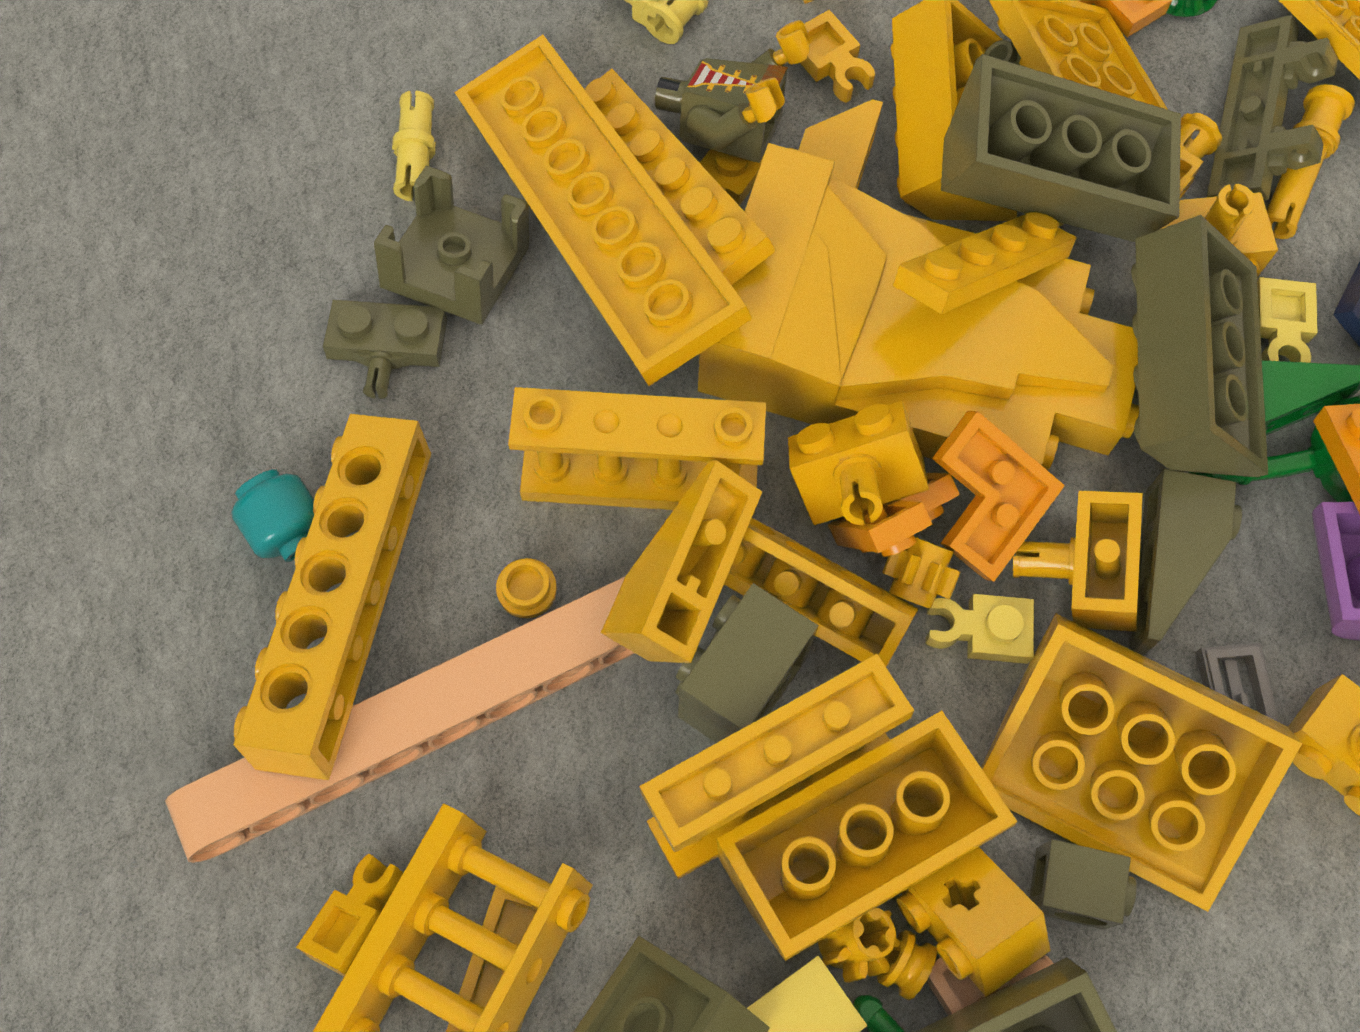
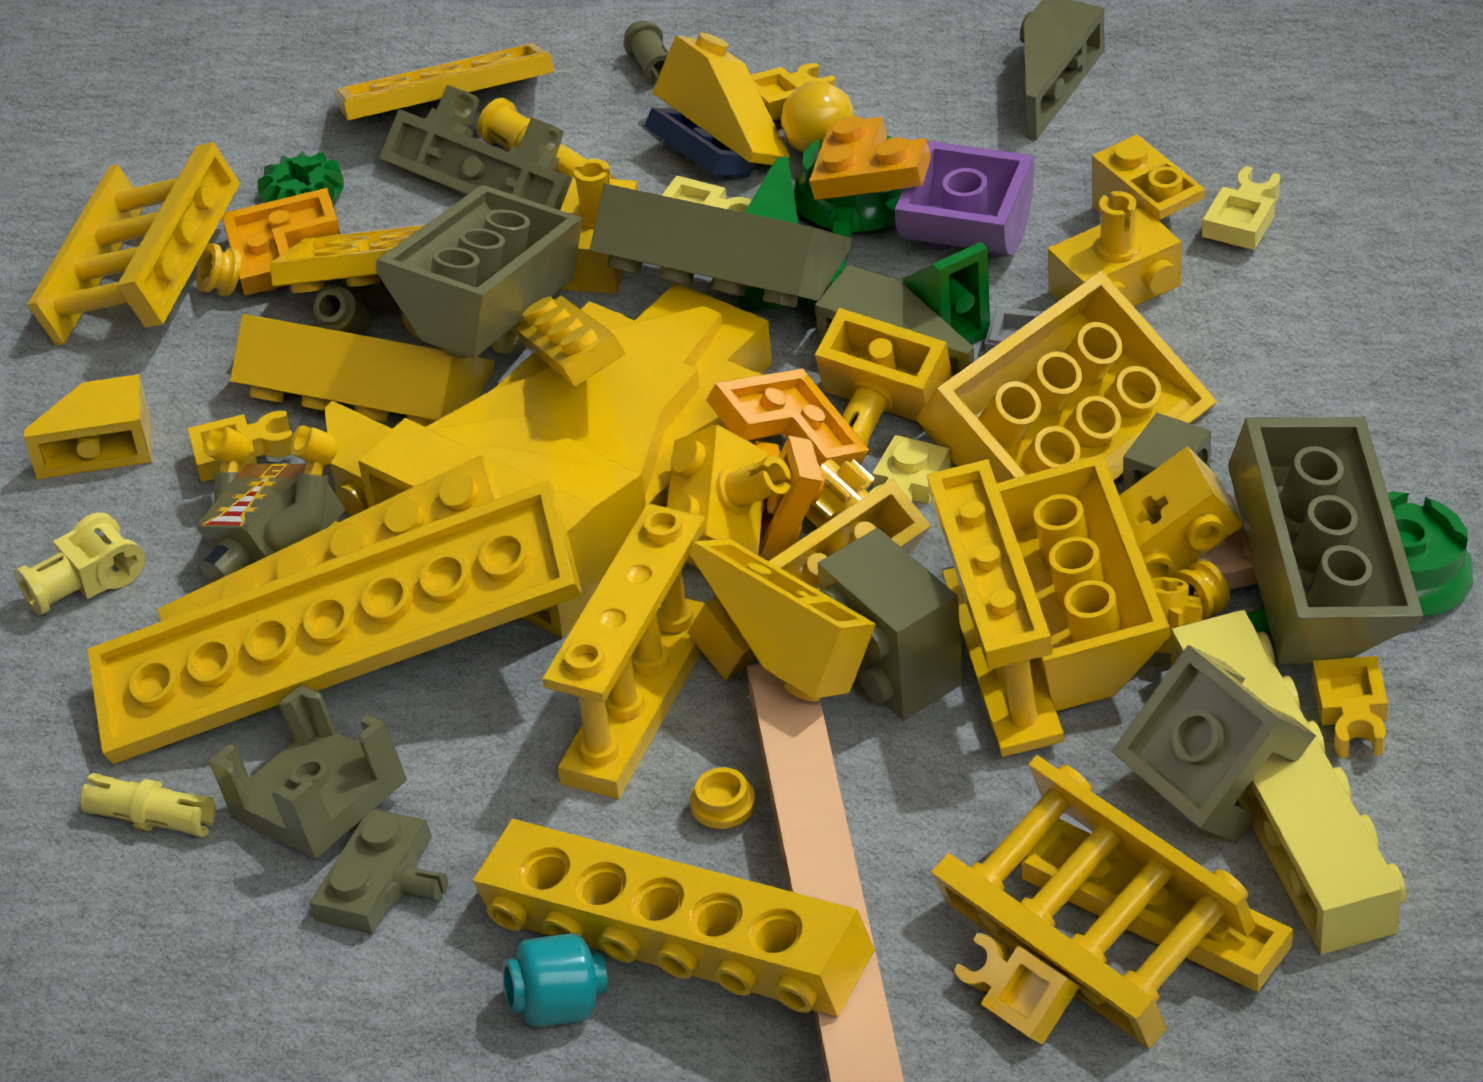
camera: 65 degrees left, 25 degrees down
(1235, 595) = (957, 291): none -> green slope

